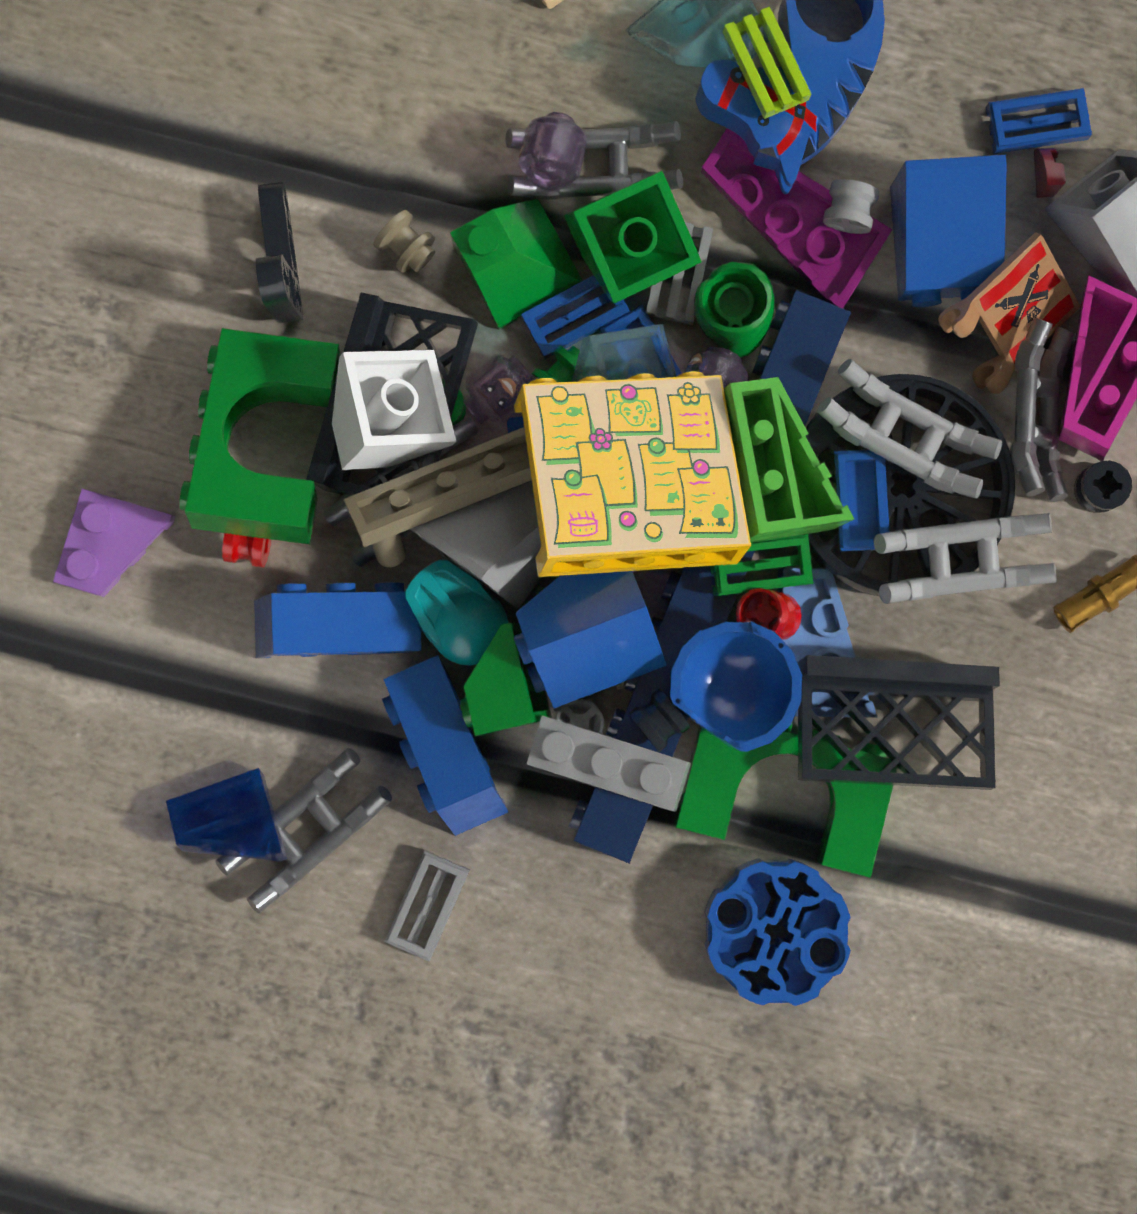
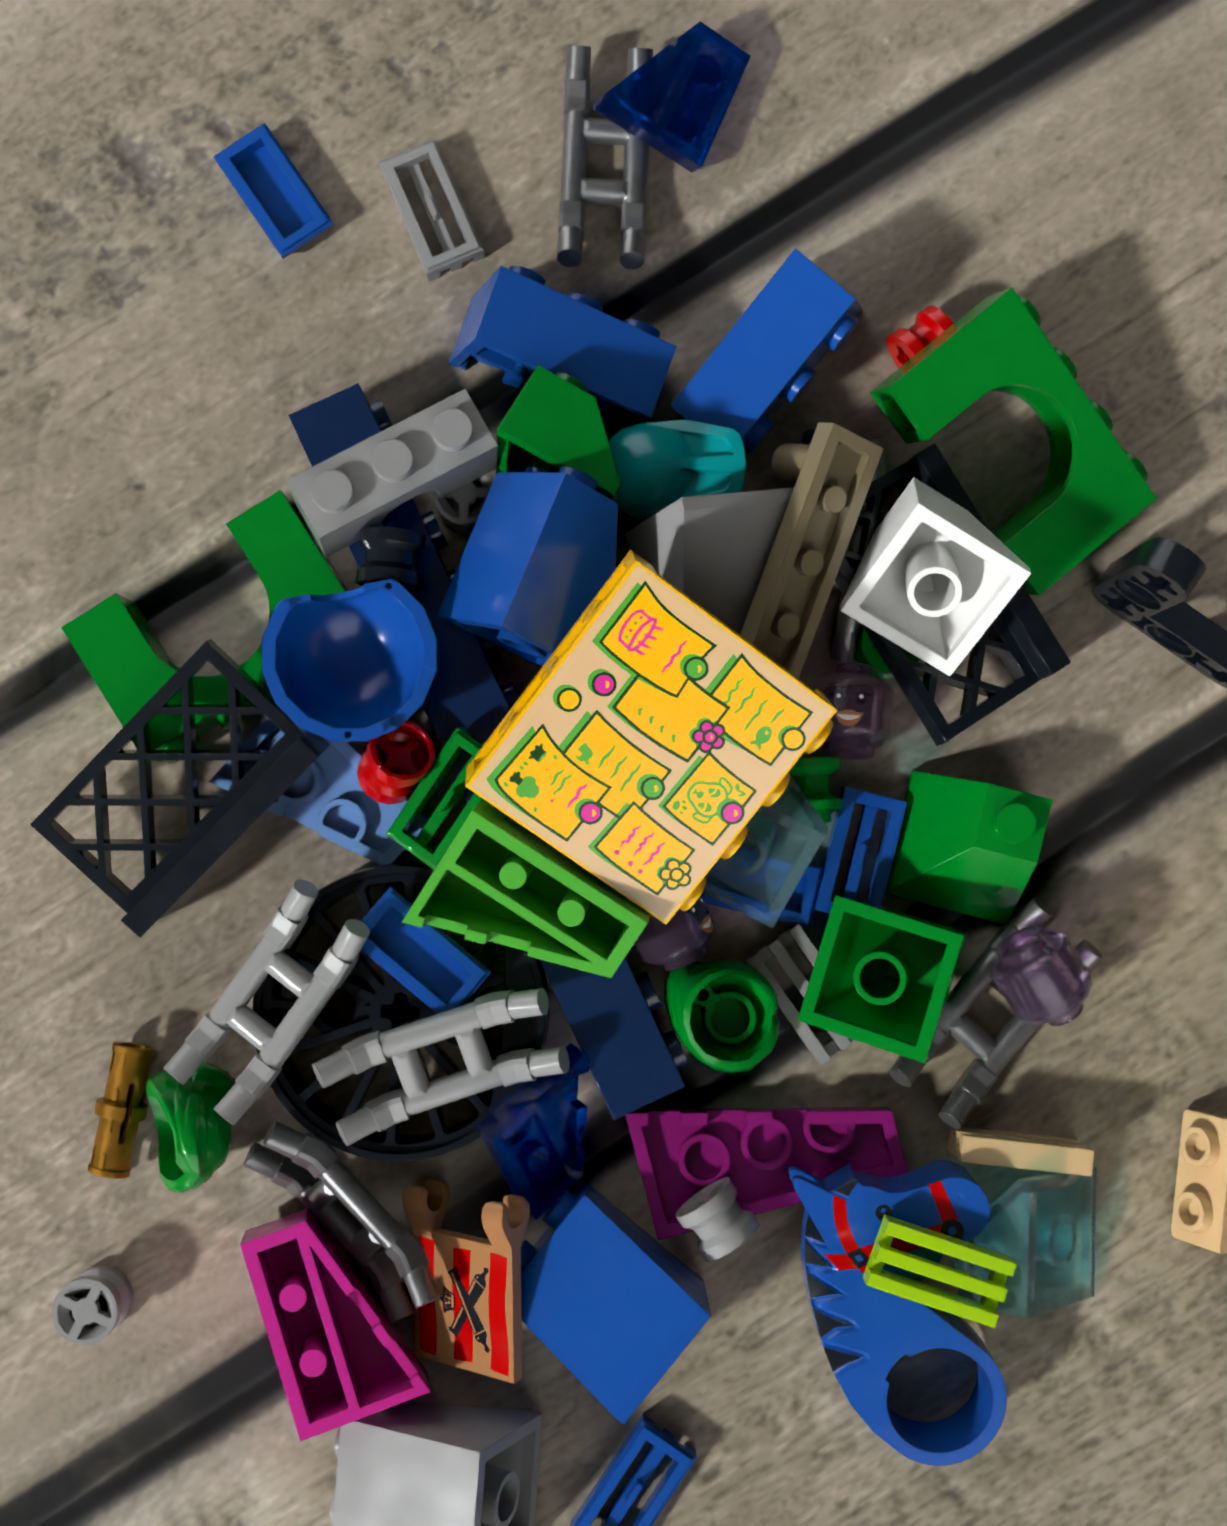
camera: 130 degrees right, 0 degrees up
(106, 540) = (1046, 219): medium lavender wing -> none
(412, 249) = (1068, 755): dark tan wheel -> none
(502, 1008) = (273, 190): none -> blue tile
(657, 78) = (1020, 1150): none -> tan tile
(826, 921) = (133, 450): blue connector -> none
(897, 344) = (540, 1135): none -> clear blue wing
(1048, 174) = (570, 1448): dark red tile -> none
(1076, 543) = (190, 1131): none -> green hair
(1091, 486) = (231, 1196): black wheel -> none

